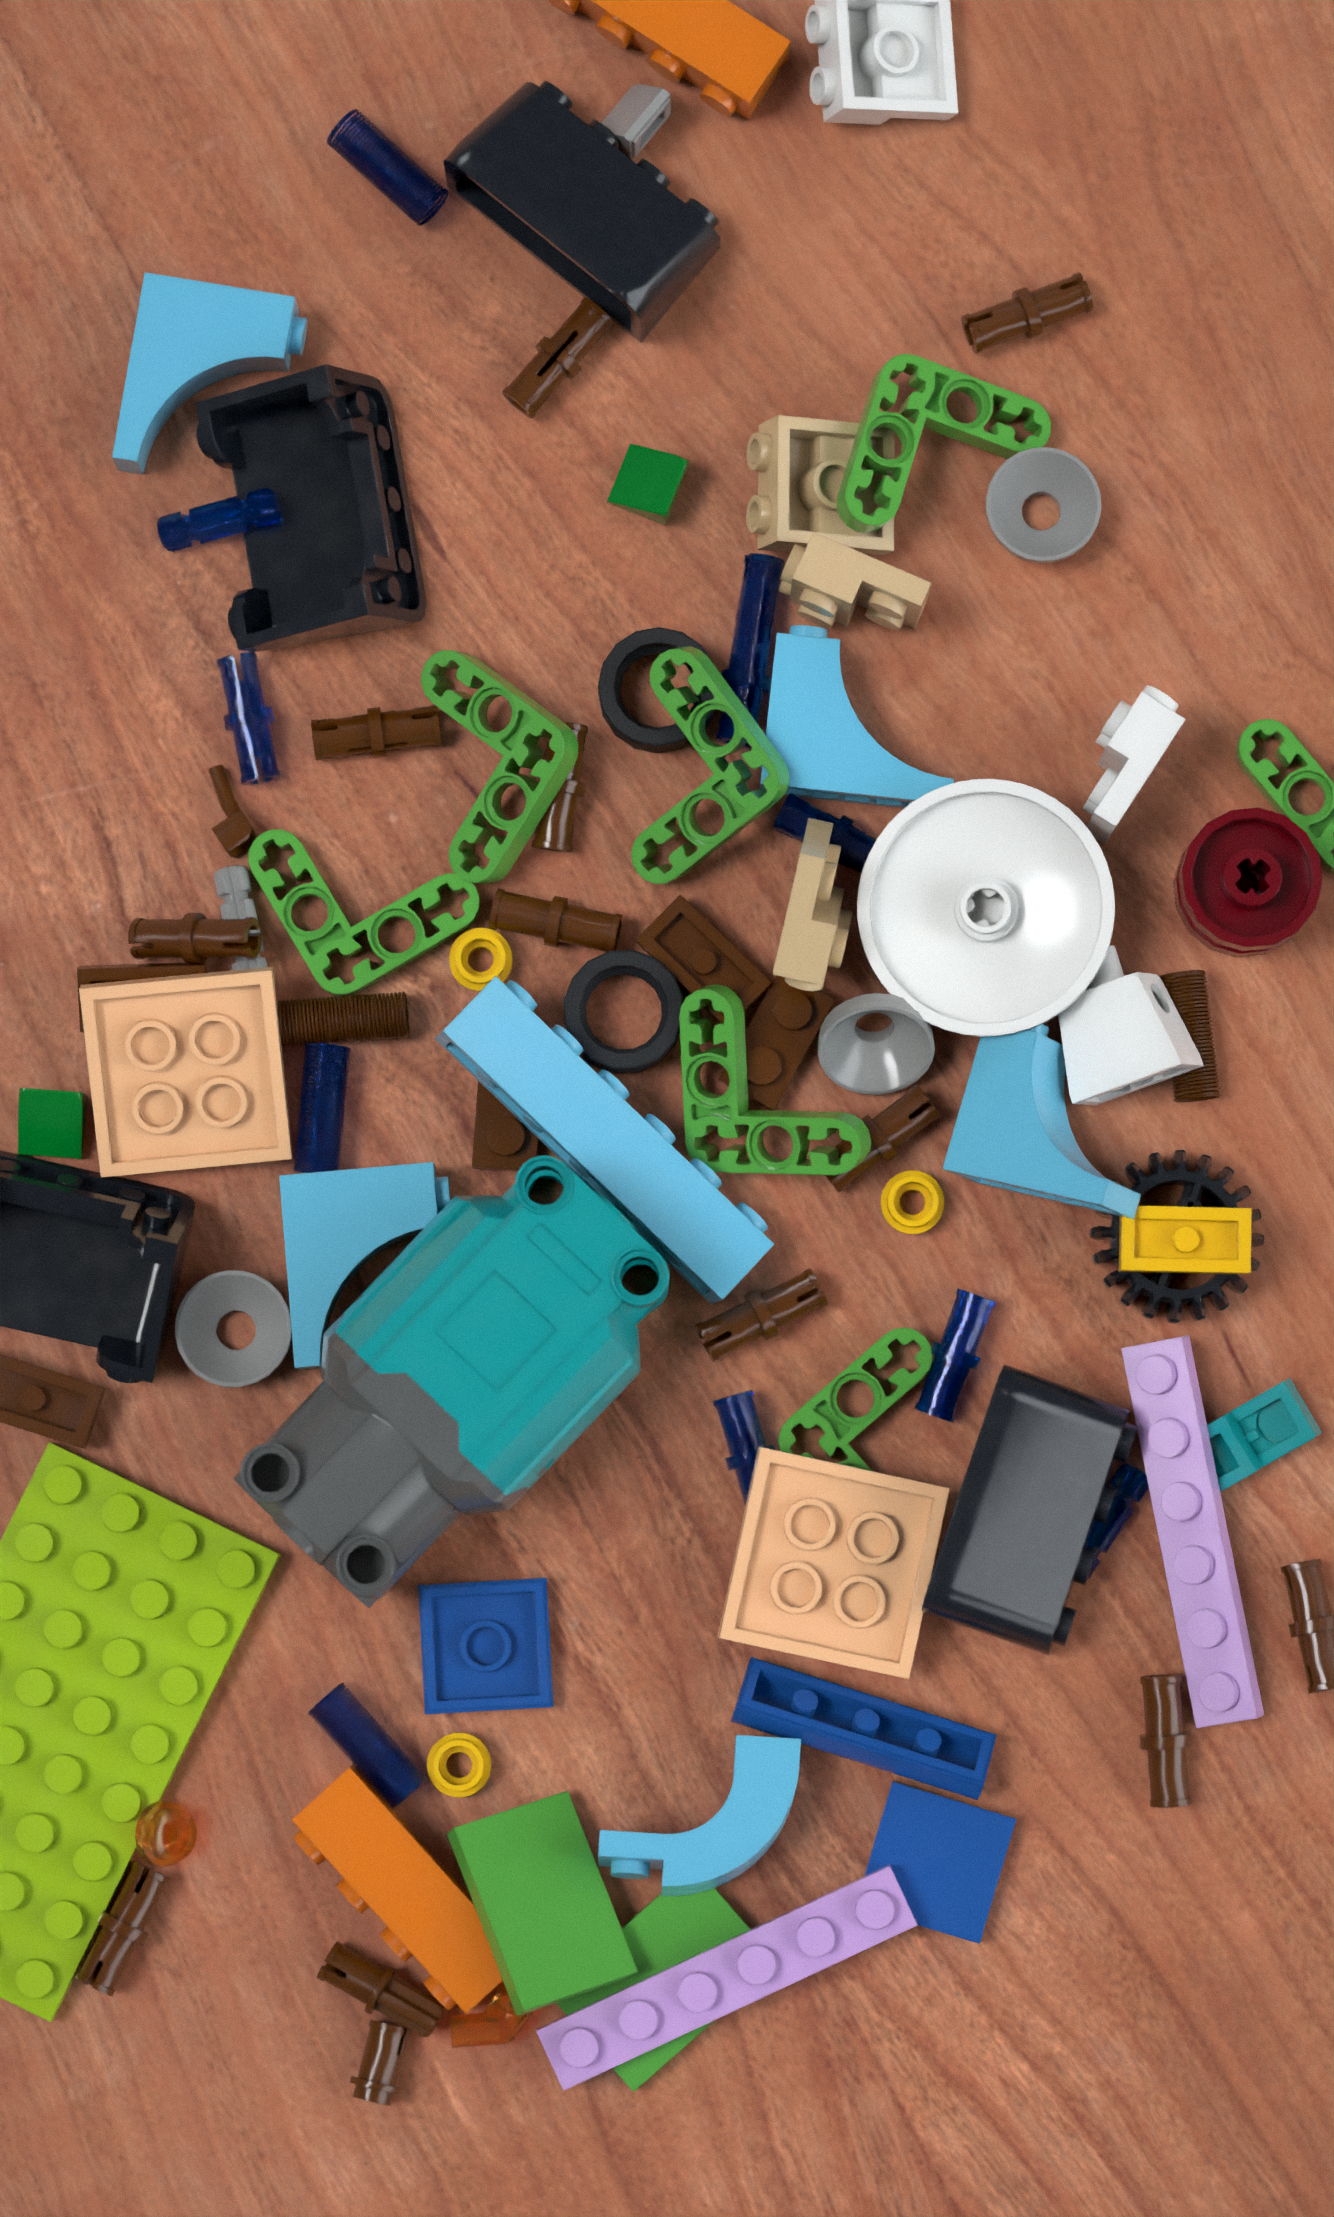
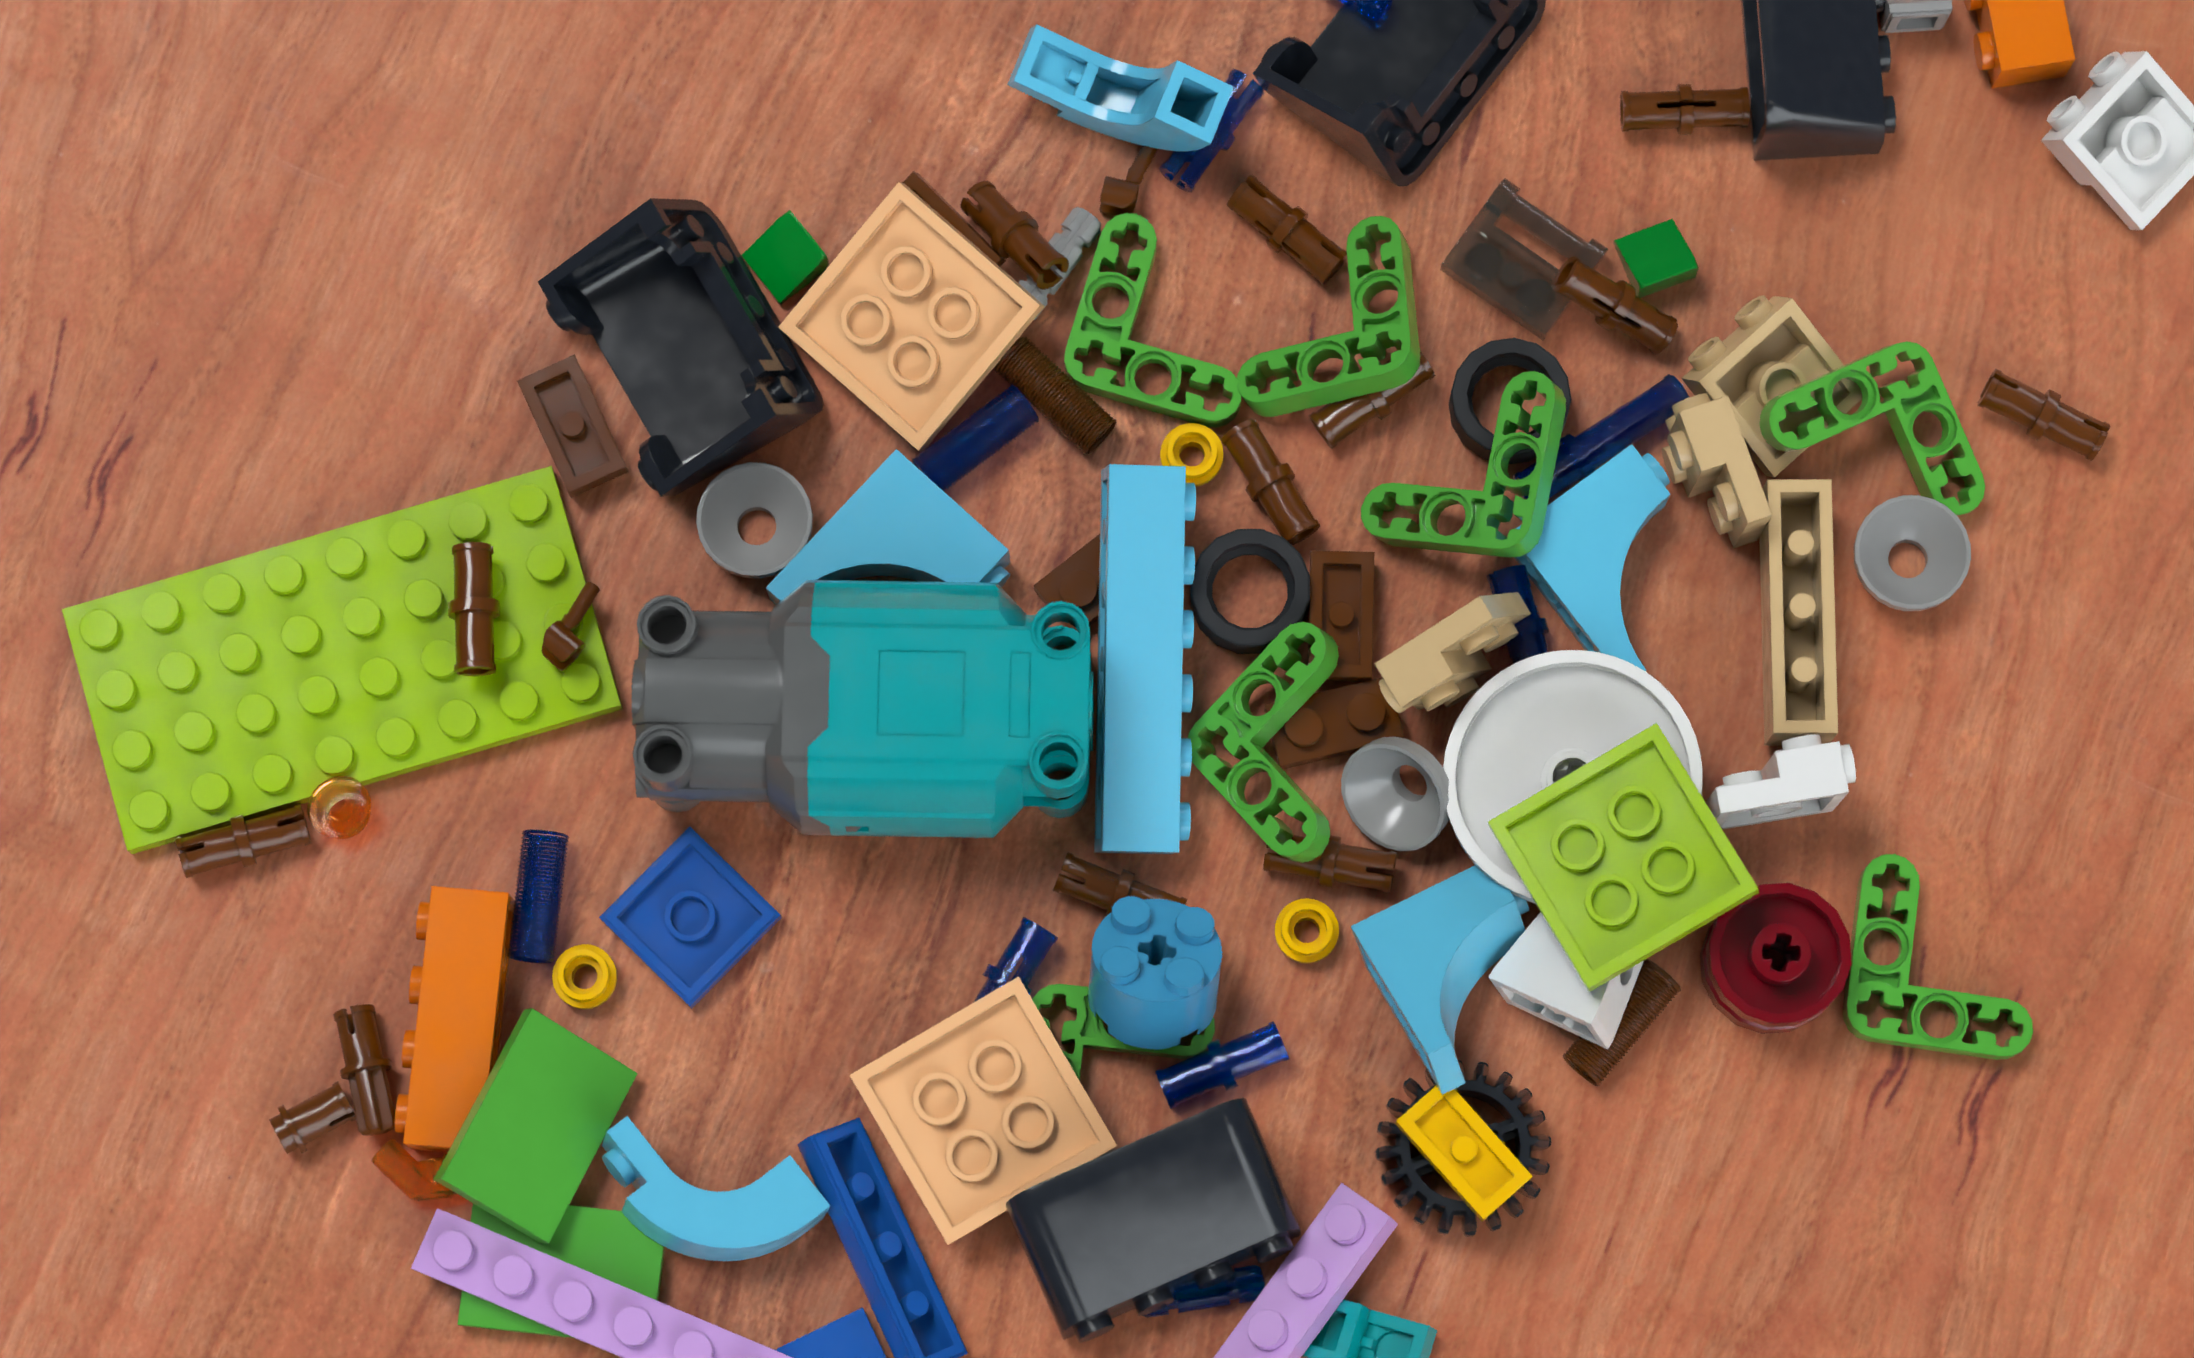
camera: 50 degrees right, 5 degrees down
(109, 1600) = (473, 609): none -> reddish brown pin
(182, 754) = (1140, 105): none -> medium azure arch
(194, 1558) = (559, 641): none -> reddish brown hand
(566, 599) = (1508, 271): none -> clear smoke plate
(659, 546) = (1615, 304): none -> reddish brown pin
(847, 1343) = (1154, 971): none -> dark azure brick
(1013, 629) = (1798, 612): none -> tan brick
(1082, 927) = (1623, 857): none -> lime plate

